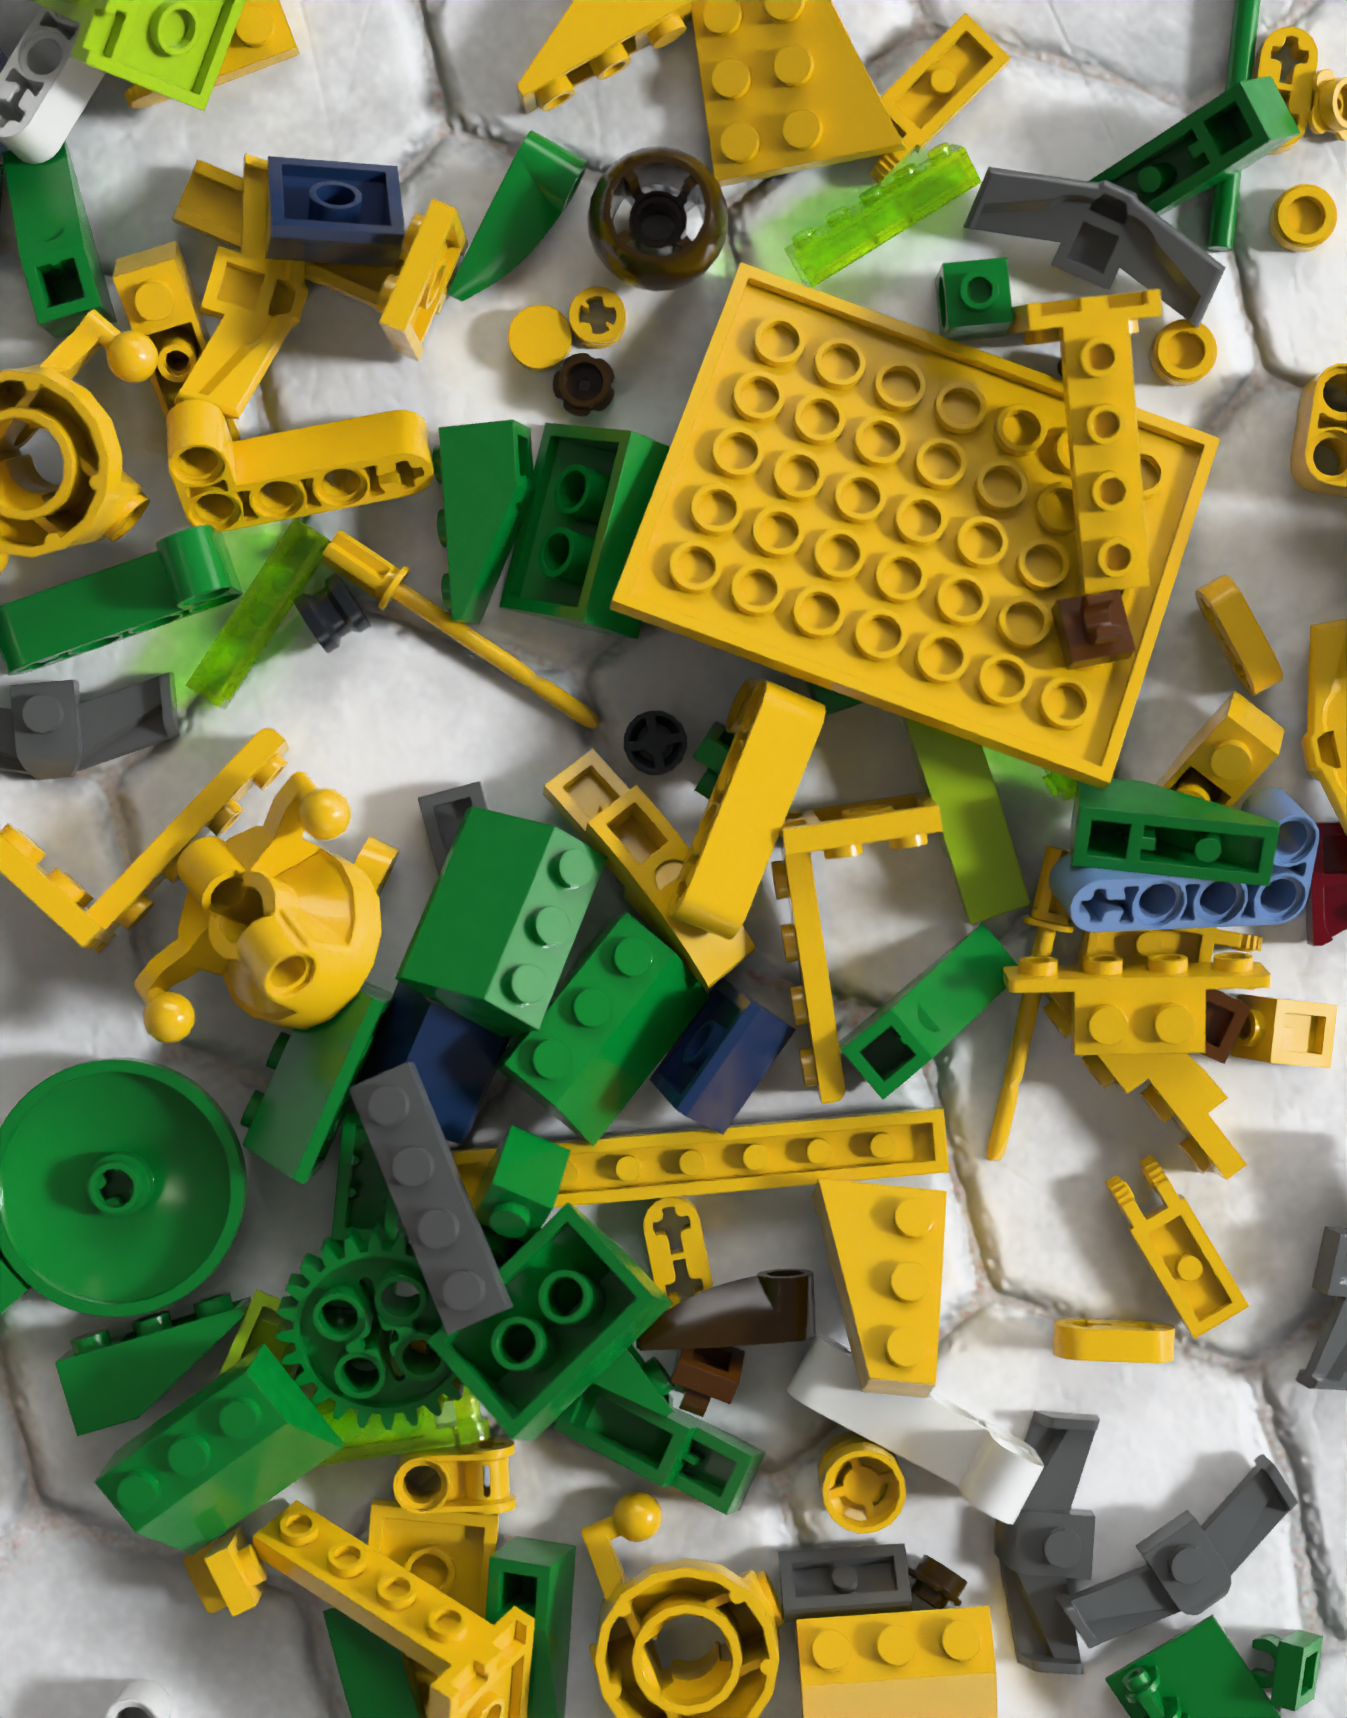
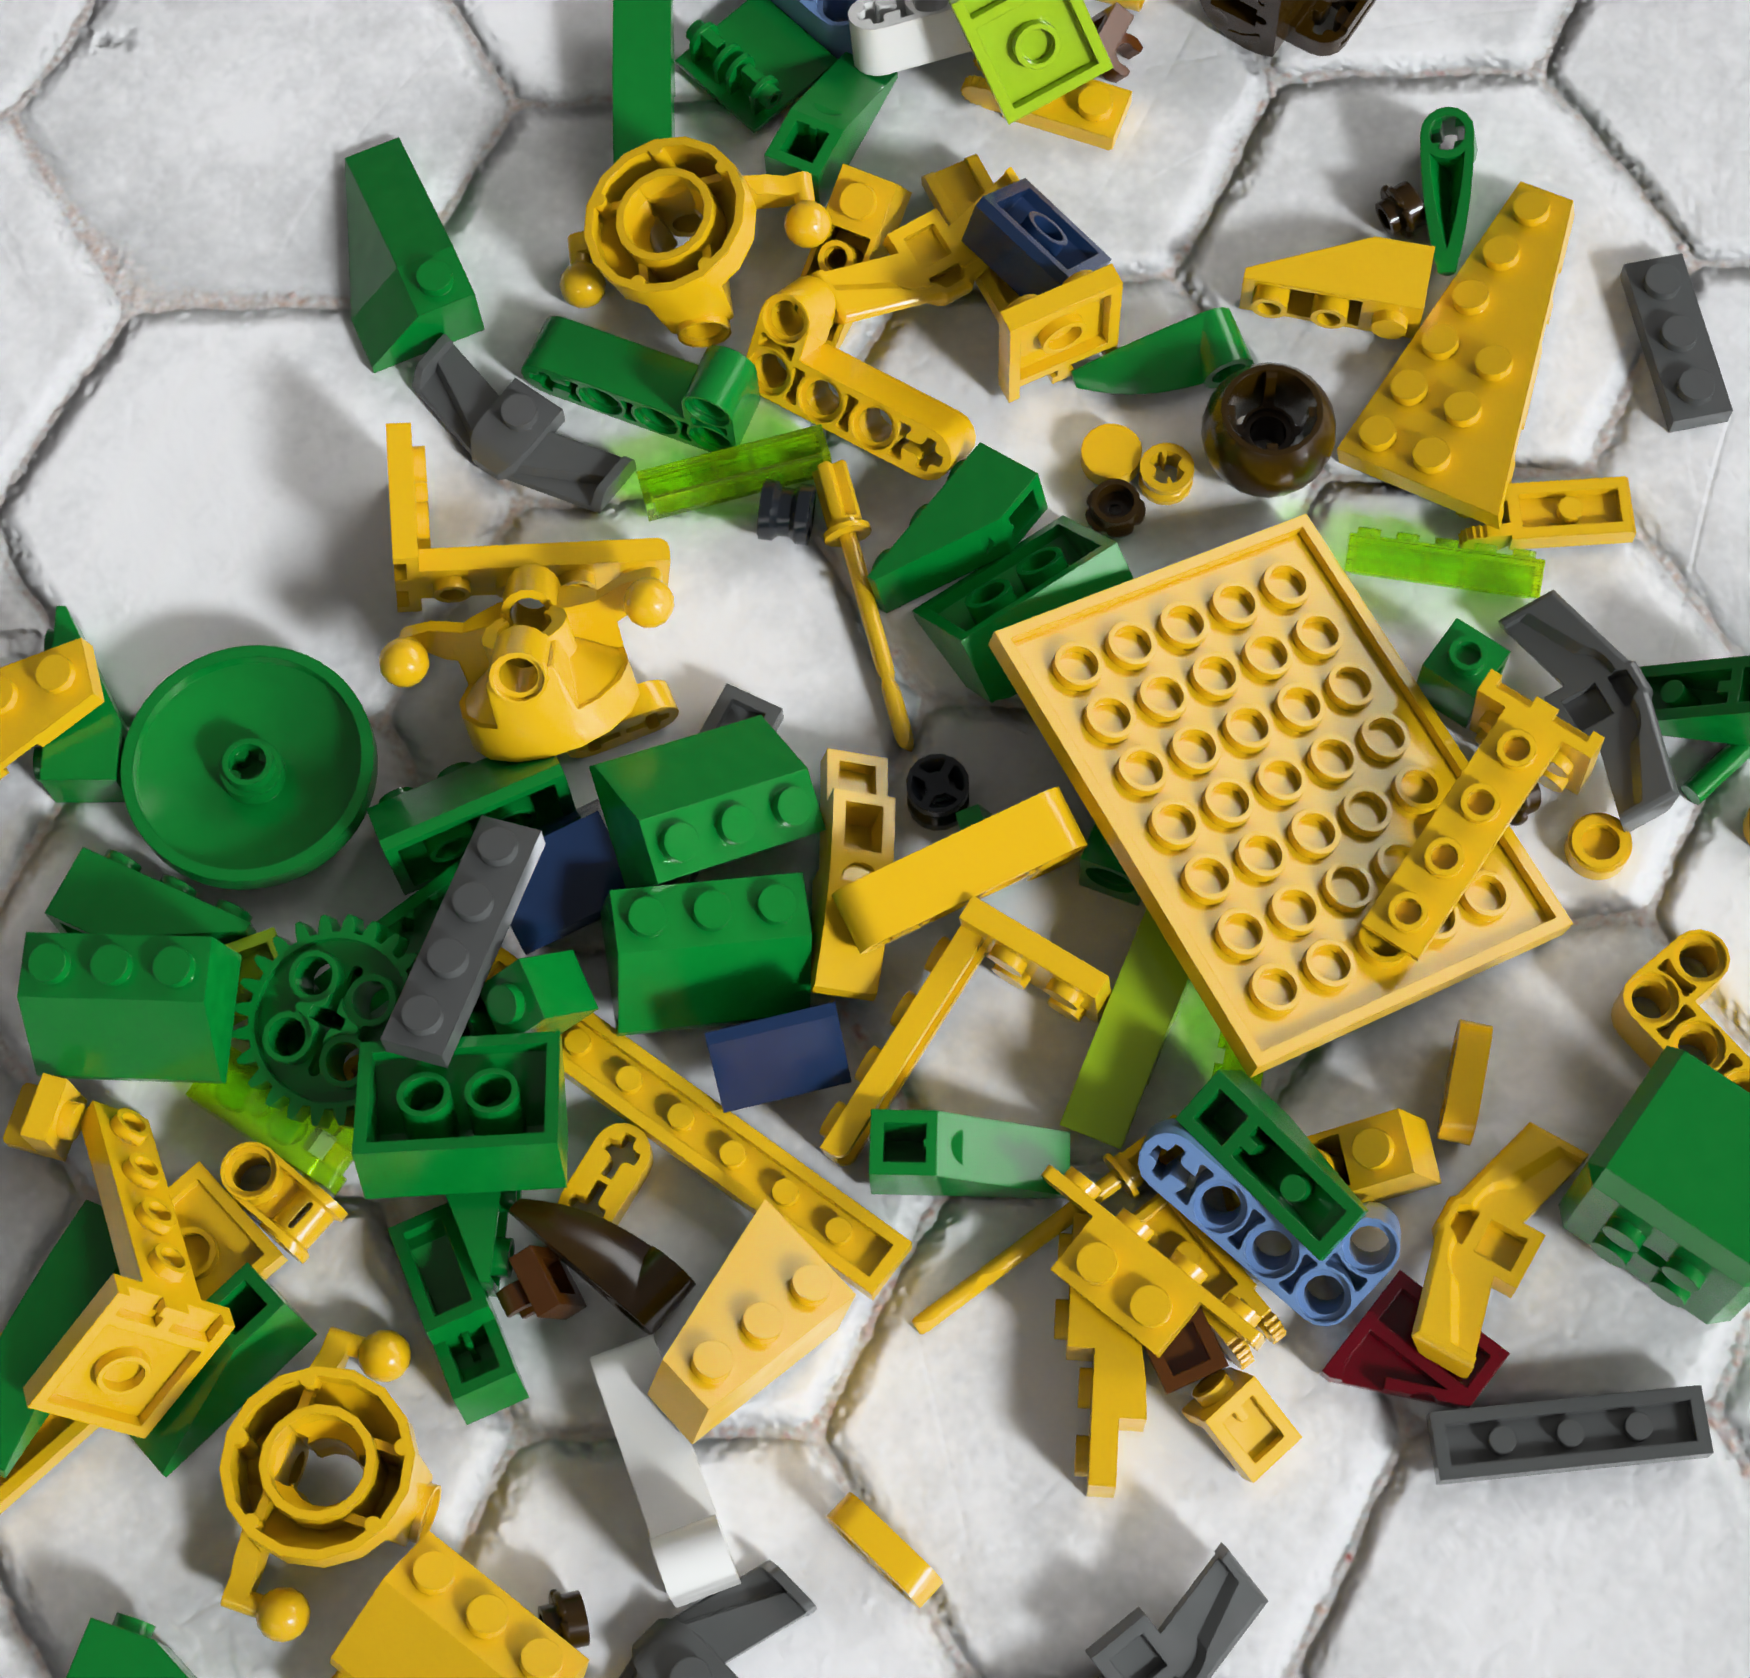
camera: 45 degrees right, 20 degrees down
(844, 1581) = (496, 1548): dark grey plate -> none
(860, 1483) = (580, 1475): yellow wheel -> none
(1093, 629) = (1345, 952): reddish brown tile -> none
(1179, 1253) = (999, 1529): yellow hinge -> none

